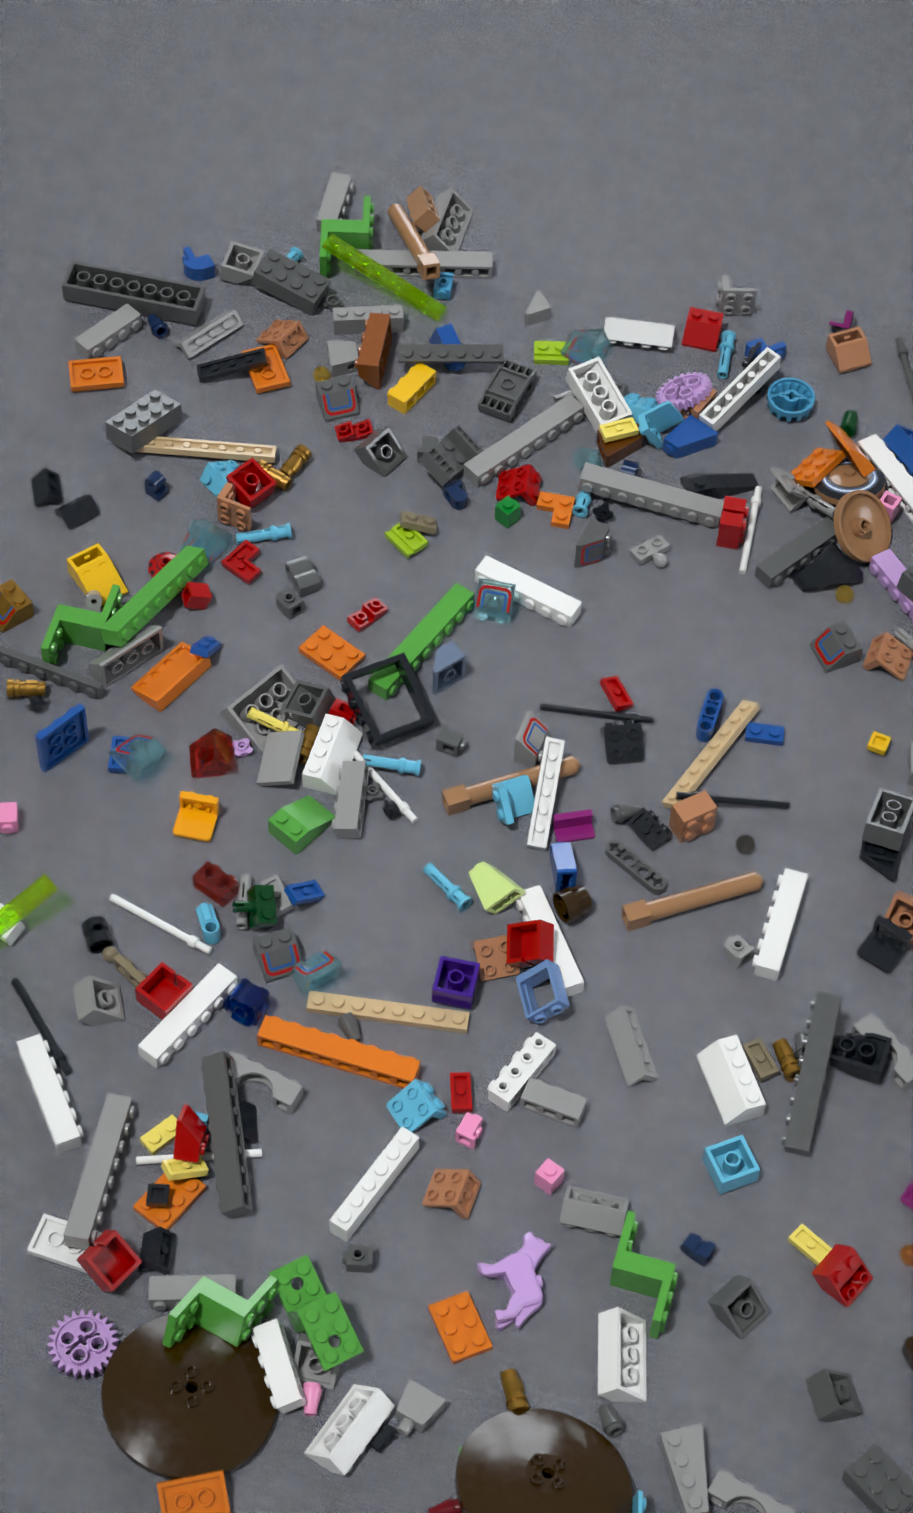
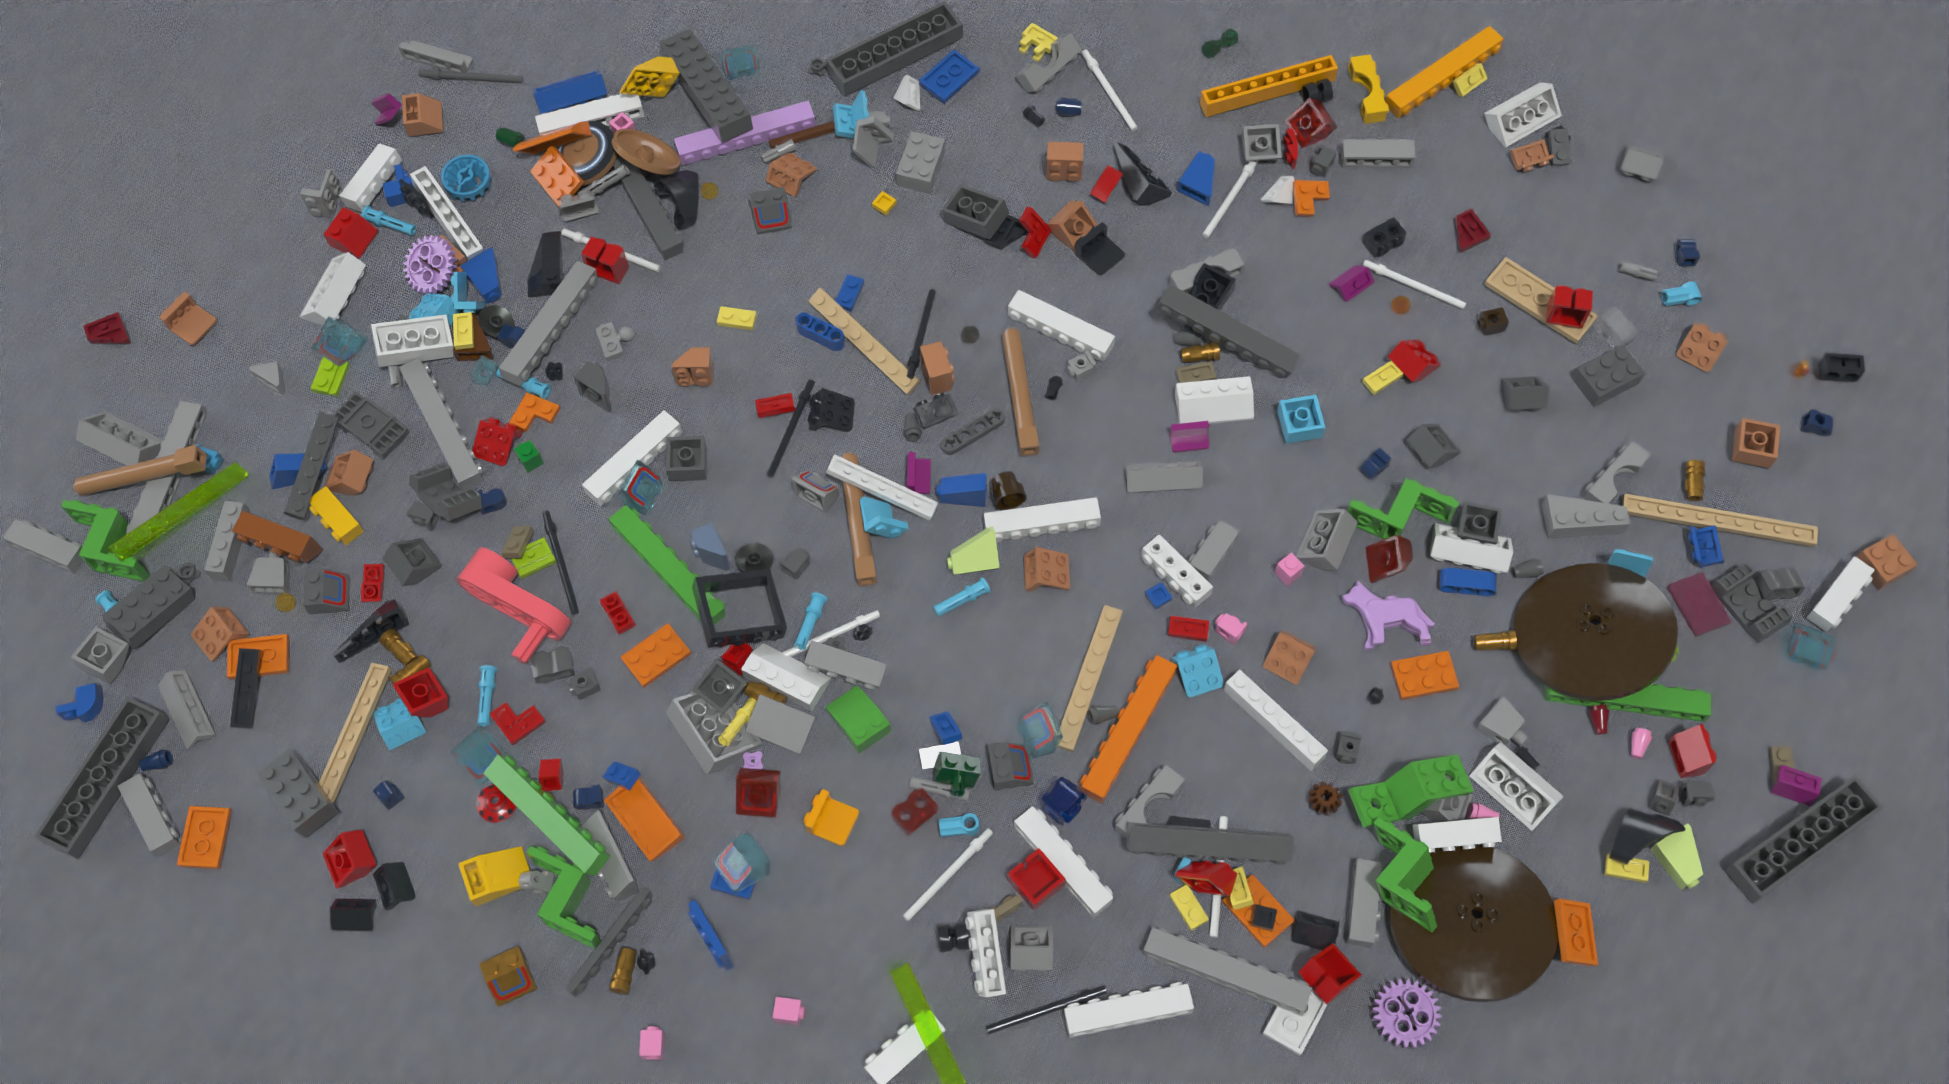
camera: 75 degrees left, 10 degrees up
(82, 957) = (985, 953): none -> white brick
(95, 474) = (349, 858): none -> red slope
(180, 628) = (588, 798): none -> dark blue leg
(232, 512) = (451, 723): nougat bracket -> none
(291, 1238) = (1321, 804): none -> reddish brown gear
(321, 446) = (369, 632): none -> black wedge
(370, 506) = (491, 579): none -> coral beam
(422, 209) = (95, 456): medium nougat brick -> none
(424, 1279) = (1376, 695): none -> black plate
(438, 547) = (551, 530): none -> black bar
(450, 703) = (753, 553): none -> pearl dark grey dish
(455, 388) = (349, 473): none -> nougat slope
(455, 982) = (1074, 608): dark purple brick -> none
(491, 1059) = (1158, 595): none -> blue plate
(530, 943) = (1051, 530): red piece -> none
(535, 976) = (1084, 550): medium blue window -> none
(536, 631) = (686, 458): none -> dark grey brick
(551, 189) = (107, 330): none -> dark red wing
(577, 238) = (187, 319): none -> nougat bracket
(578, 1358) = (1467, 582): none -> blue beam
(588, 1274) = (1388, 557): none -> clear red slope
(635, 616) = (694, 367): none -> nougat slope
(645, 449) = (497, 315): none -> pearl dark grey dish
(647, 1356) = (1479, 522): none -> dark grey slope
(683, 1064) = (1189, 436): none -> magenta panel
(706, 645) = (736, 318): none -> light yellow plate
(706, 930) = (1055, 384): none -> black pin
(769, 328) = (370, 177): none -> white brick
(886, 884) = (1037, 230): none -> red plate

